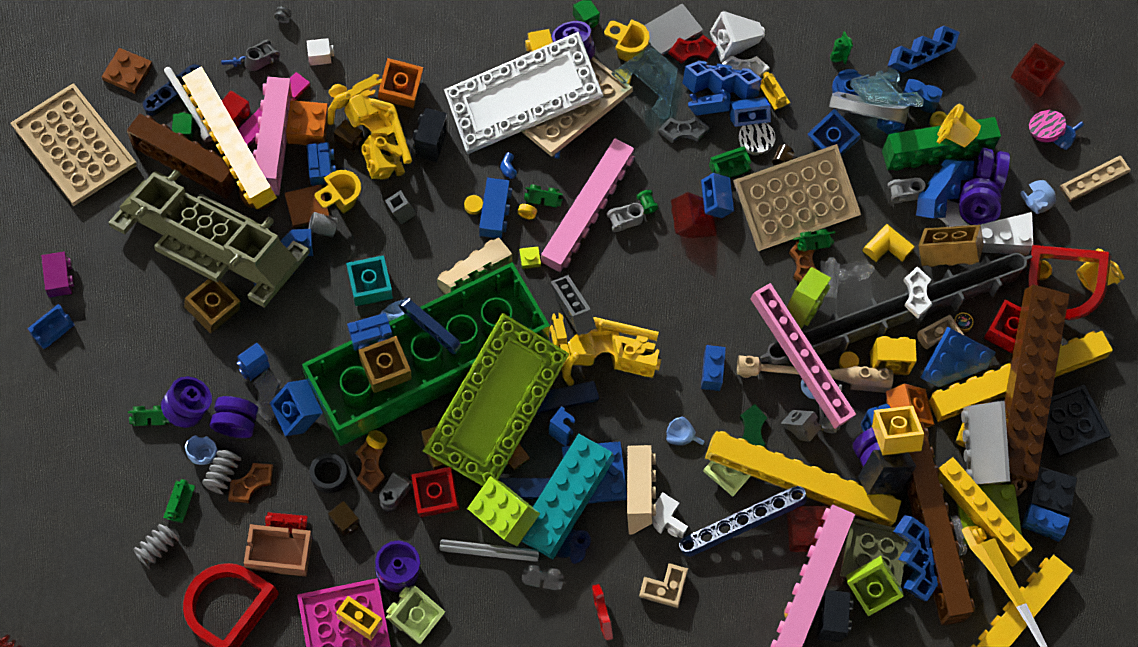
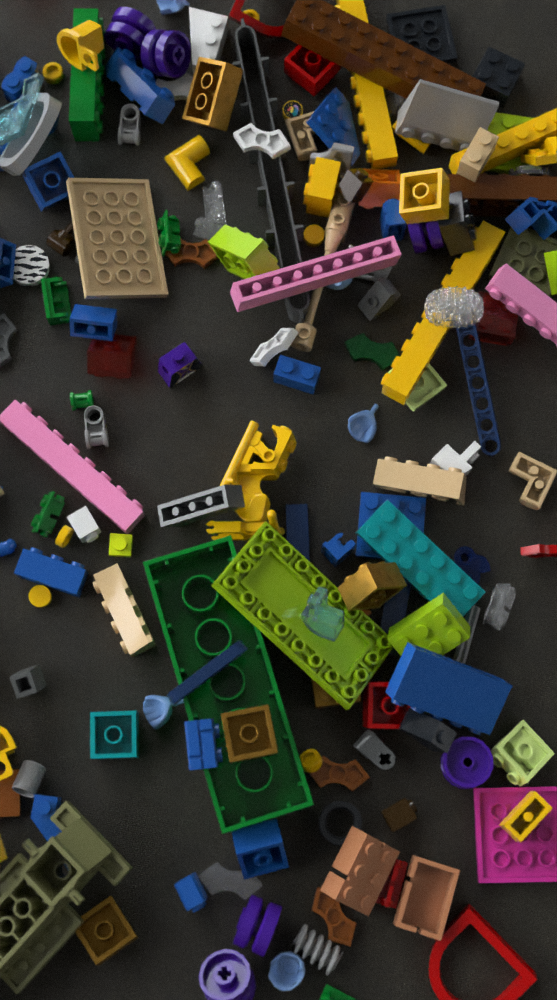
camera: 75 degrees left, 10 degrees up
(291, 493) = (367, 866): none -> nougat piece
(418, 523) = (428, 731): none -> black slope
(456, 534) = (448, 689): none -> blue brick
(495, 410) = (321, 618): none -> clear light blue brick
(533, 453) = (371, 586): none -> pearl gold brick
(540, 224) = (84, 525): none -> white brick
(697, 269) = (179, 364): none -> dark purple torso
(732, 342) = (269, 349): none -> white tile
(800, 474) = (454, 307): none -> clear gear
(897, 377) = (354, 185): none -> dark brown brick
(924, 363) = (338, 152): none -> light grey tile
(954, 473) = (477, 154): none -> tan brick
(1045, 522) = (525, 91): blue brick -> none

